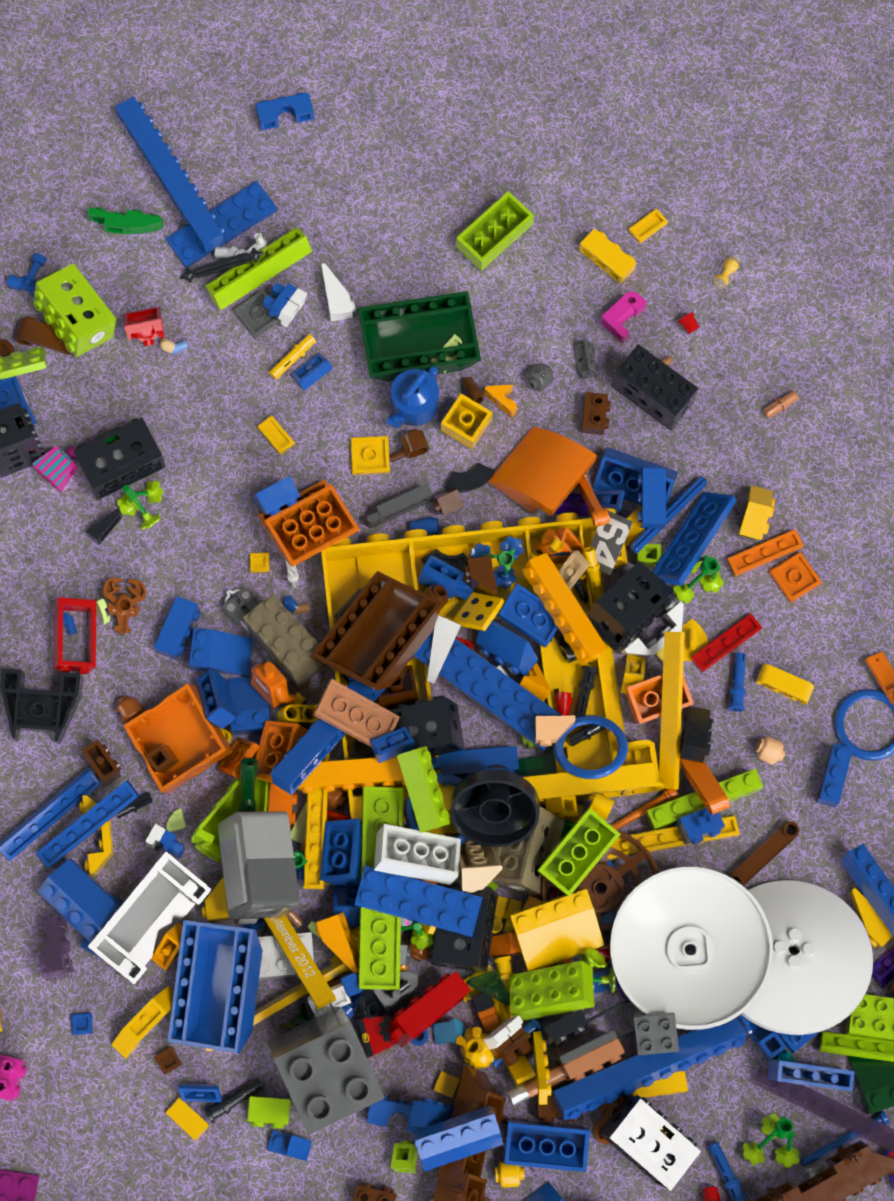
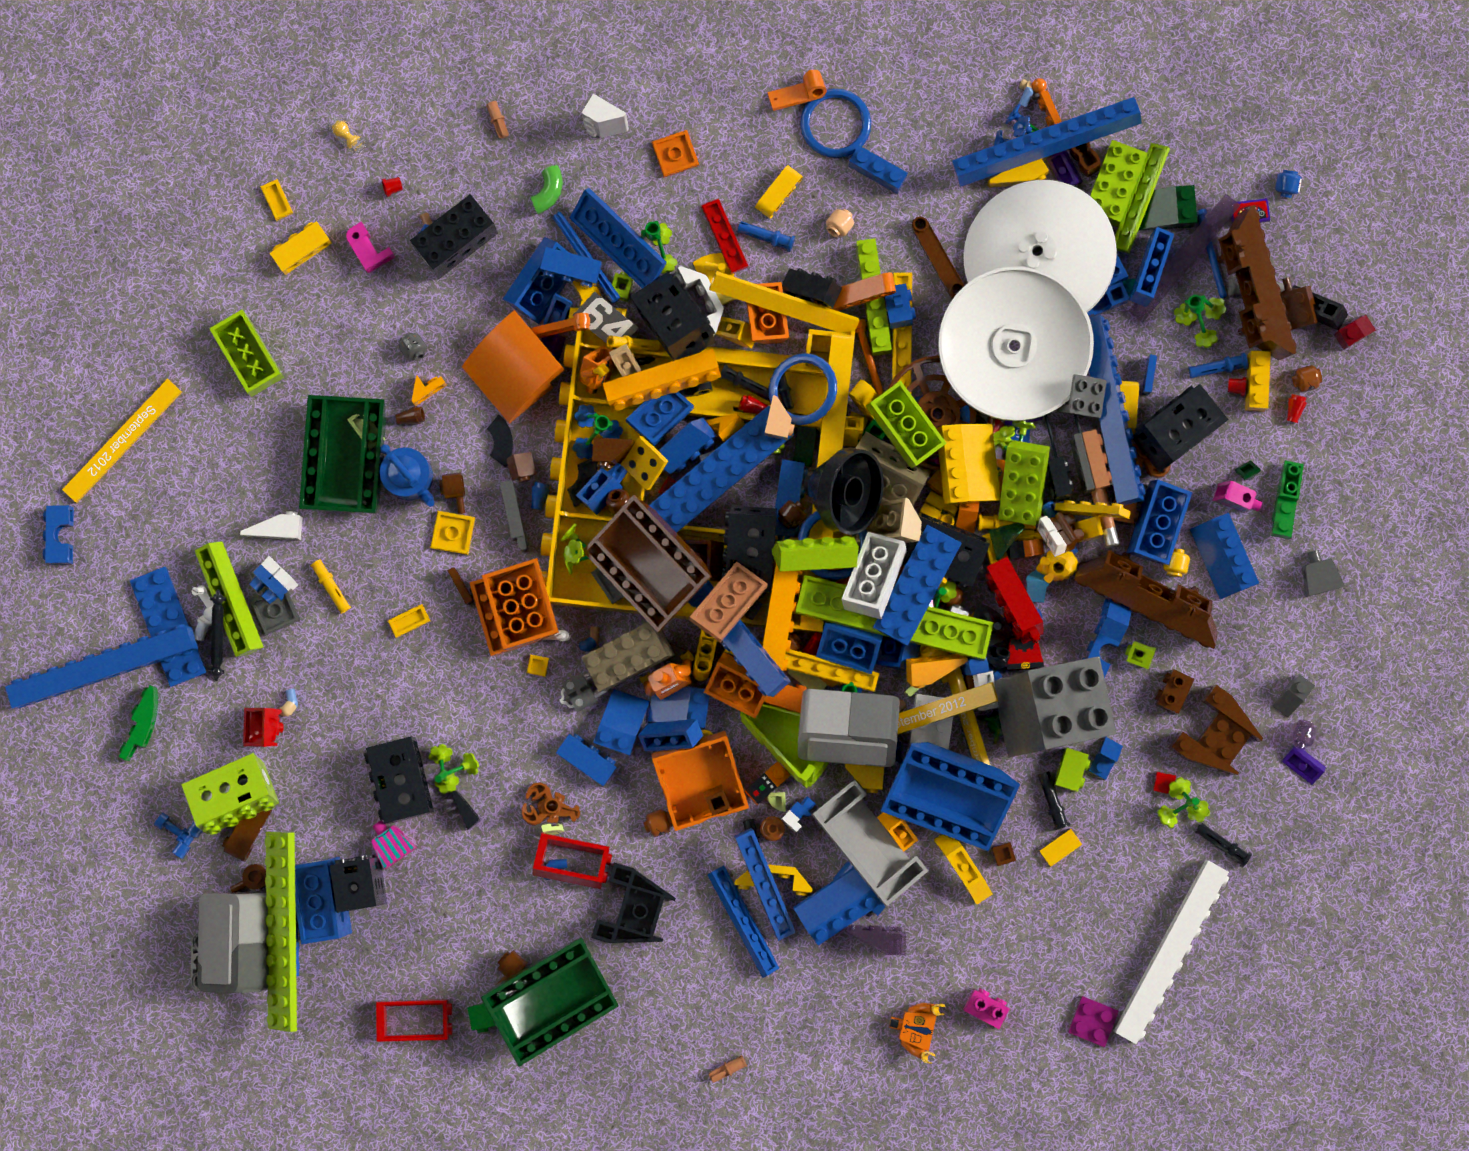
camera: 70 degrees left, 10 degrees up
(82, 1024) = (950, 928): blue tile -> none
(101, 763) = (705, 860): reddish brown brick -> none
(145, 820) = (772, 828): none -> dark orange head
(189, 804) = (767, 783): none -> slope
(200, 1092) = (1040, 828): blue slope -> none
(241, 749) = (736, 728): orange tile -> none
(248, 776) = (774, 726): dark green axle -> none
(276, 495) = (478, 633): blue slope -> none
(311, 371) = (349, 571): blue slope -> none
(320, 472) = (460, 586): none -> reddish brown tile
(374, 563) = (573, 552): none -> lime plant
(386, 145) = (122, 440): none -> yellow tile
(392, 744) = (763, 574): blue slope -> none
(443, 638) = (669, 506): white sticker -> none
(446, 1084) = (1082, 601): yellow tile -> none
(457, 1138) = (1142, 599): blue slope -> none
(462, 765) = (791, 514): none -> reddish brown head
(466, 421) = (443, 429): yellow brick -> none
(588, 366) = (396, 296): dark grey hinge -> none
(594, 413) = (464, 302): reddish brown brick -> none
(698, 1101) = (1149, 374): none -> blue tile
(725, 468) = (551, 191): none -> bright green cylinder
(758, 509) = (604, 171): yellow brick -> none
(765, 553) = (645, 175): orange plate -> none
(807, 495) = (603, 118): none -> white slope

